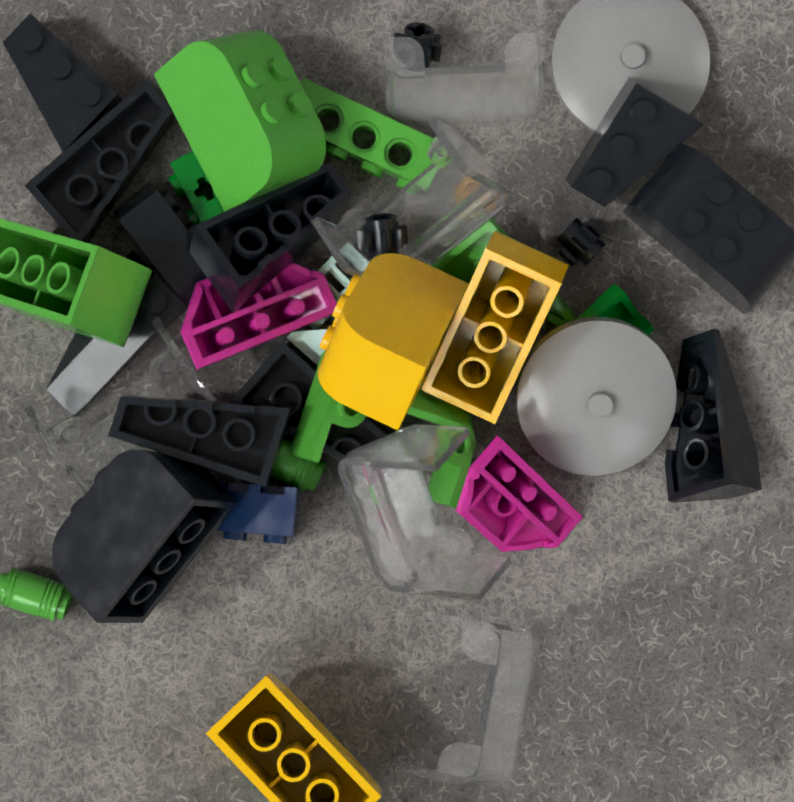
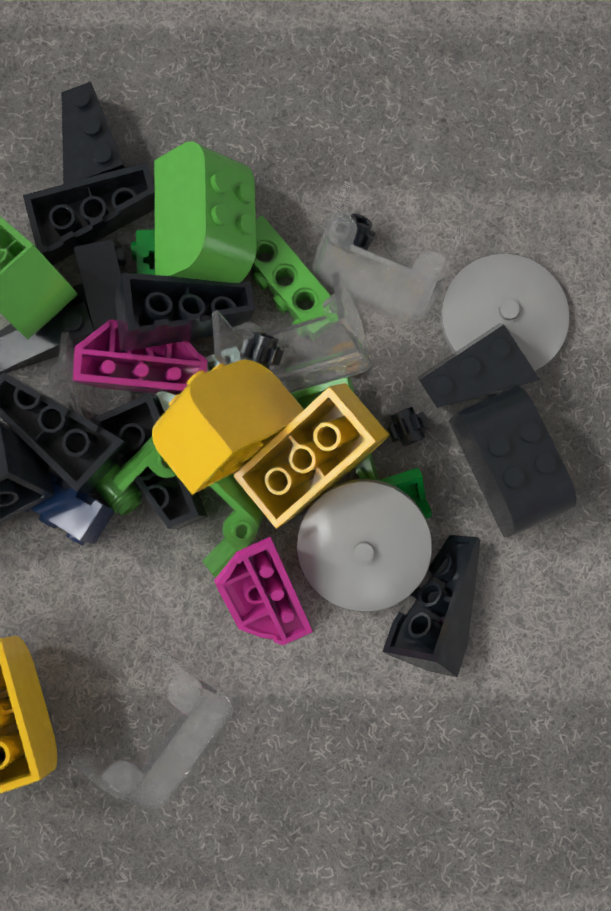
camera: 25 degrees right, 5 degrees down
(400, 520) = (173, 568): clear windscreen -> none

